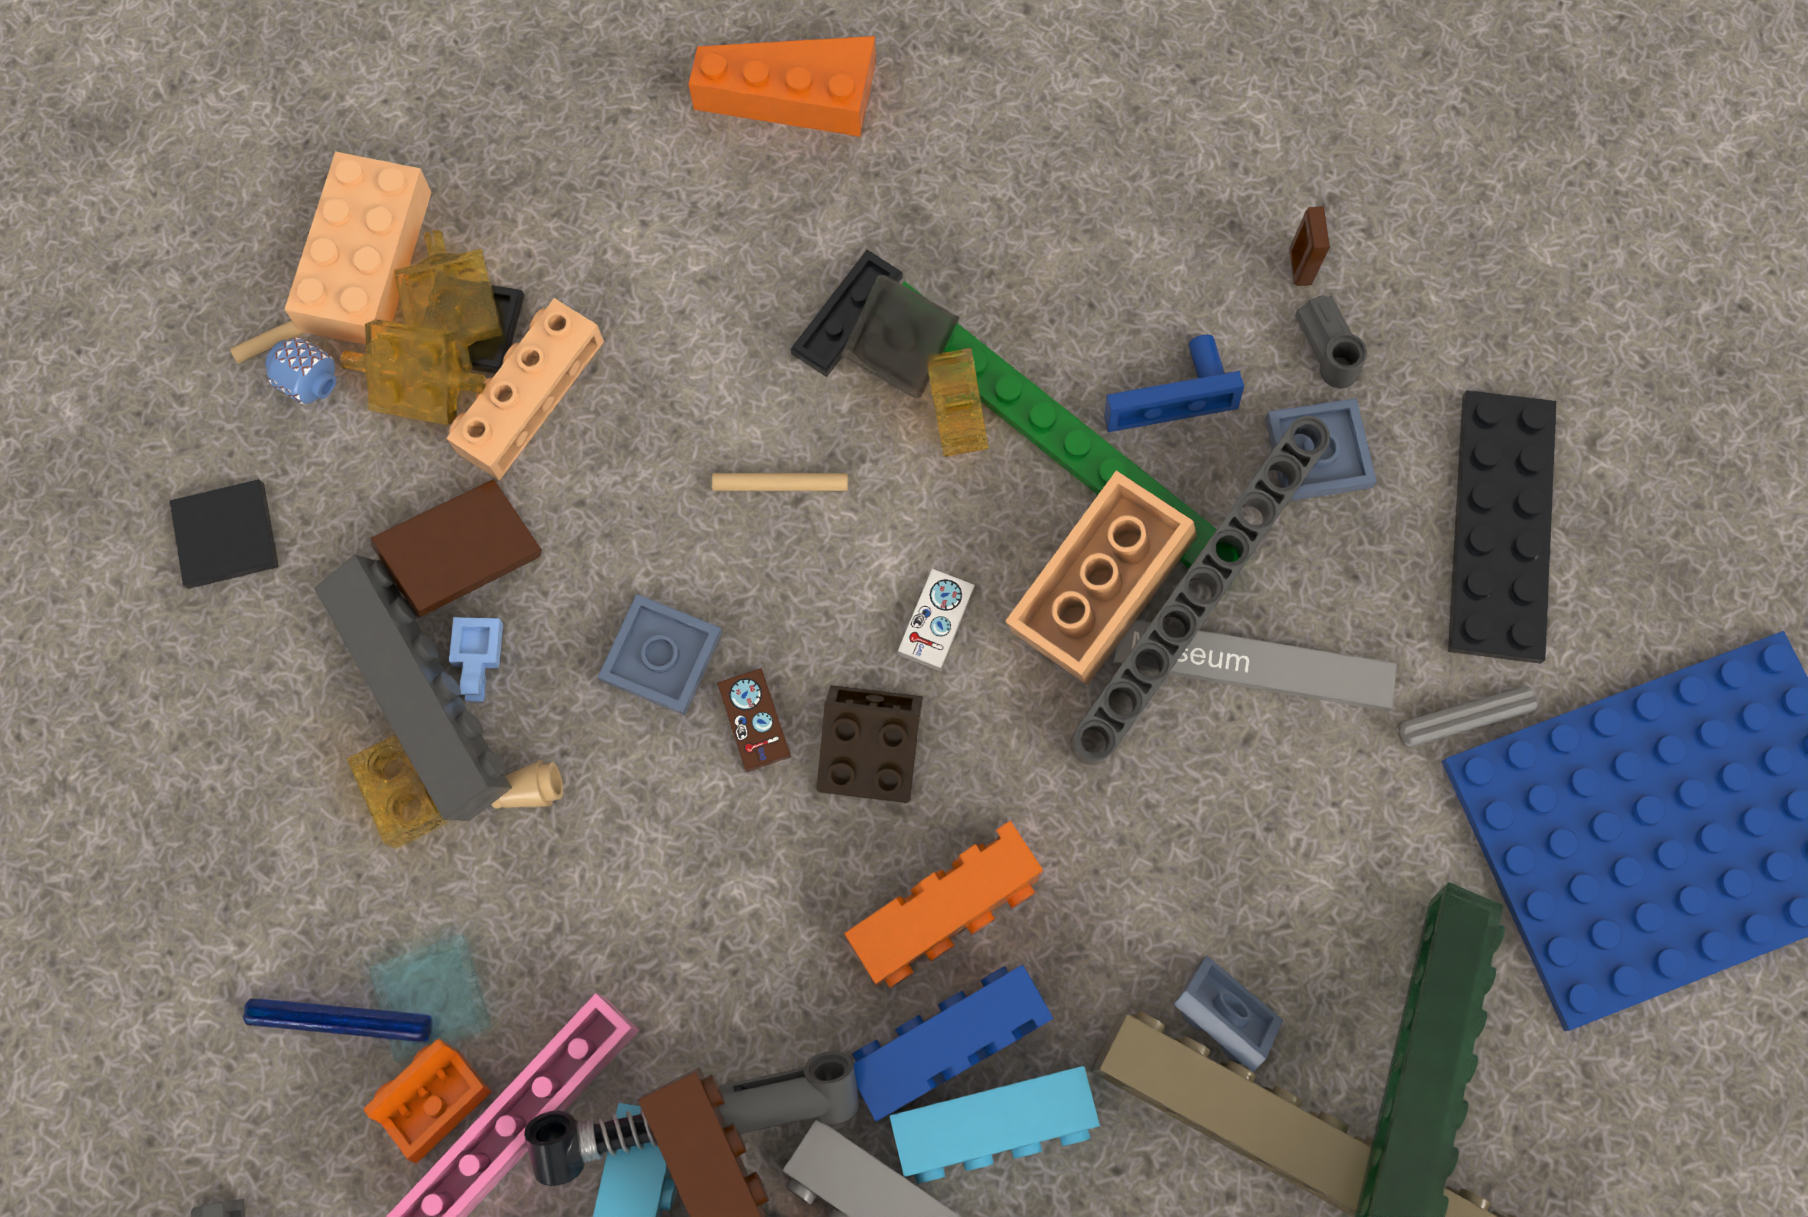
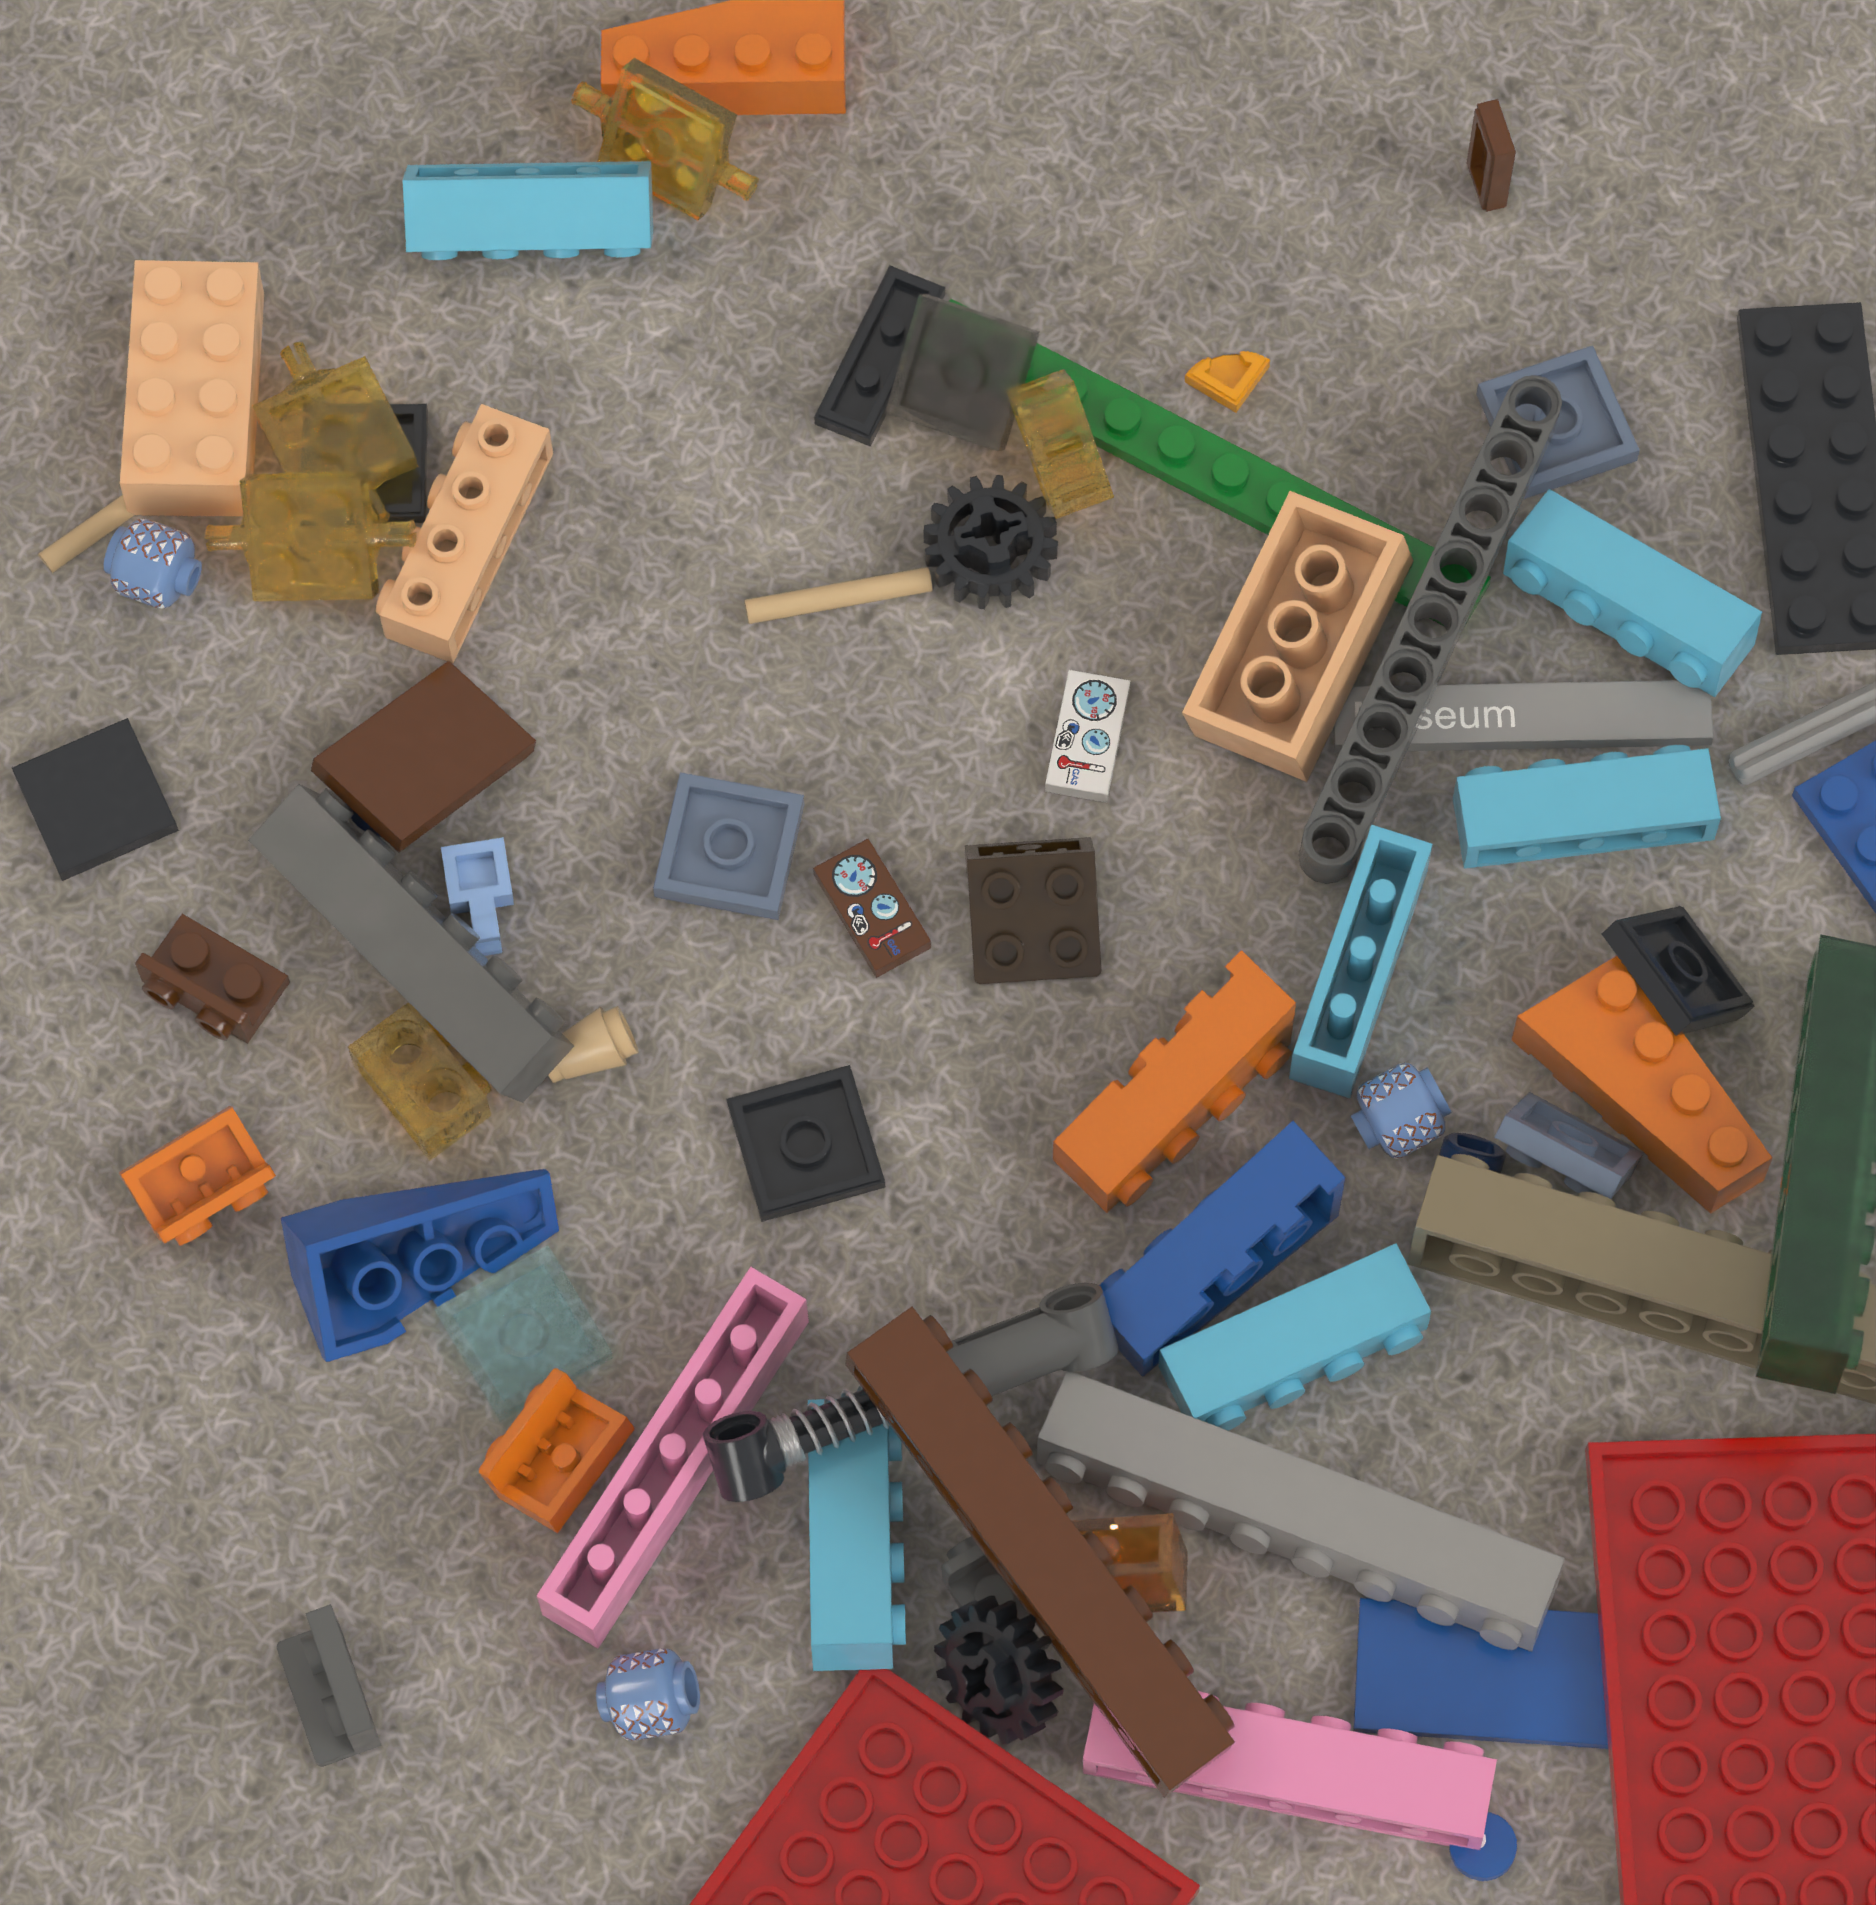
camera: 10 degrees left, 5 degrees down
(222, 834) = (198, 1177): none -> orange bracket
(271, 683) = (213, 979): none -> reddish brown bracket
(338, 1020) = (411, 1377): clear blue axle -> none
(342, 918) = (389, 1253): none -> blue wedge
(621, 164) = (528, 208): none -> medium azure brick
(667, 890) = (805, 1143): none -> black tile
(726, 131) = (673, 129): none -> clear yellow plate
(876, 464) = (1014, 527): none -> black gear
(1090, 373) = (1228, 377): none -> light orange tile
(1100, 834) = (1360, 961): none -> medium azure brick
(1108, 955) = (1401, 1110): none -> medium blue head
(1153, 999) = (1476, 1147): none -> dark blue tile
(1208, 394) = (1360, 389): blue piece -> none
(1289, 744) = (1586, 806): none -> medium azure brick
(1296, 968) = (1645, 1083): none -> orange wedge
(1331, 339) = (1546, 274): dark grey piece -> none
(1335, 888) = (1678, 970): none -> black tile
(1352, 589) = (1631, 593): none -> medium azure brick

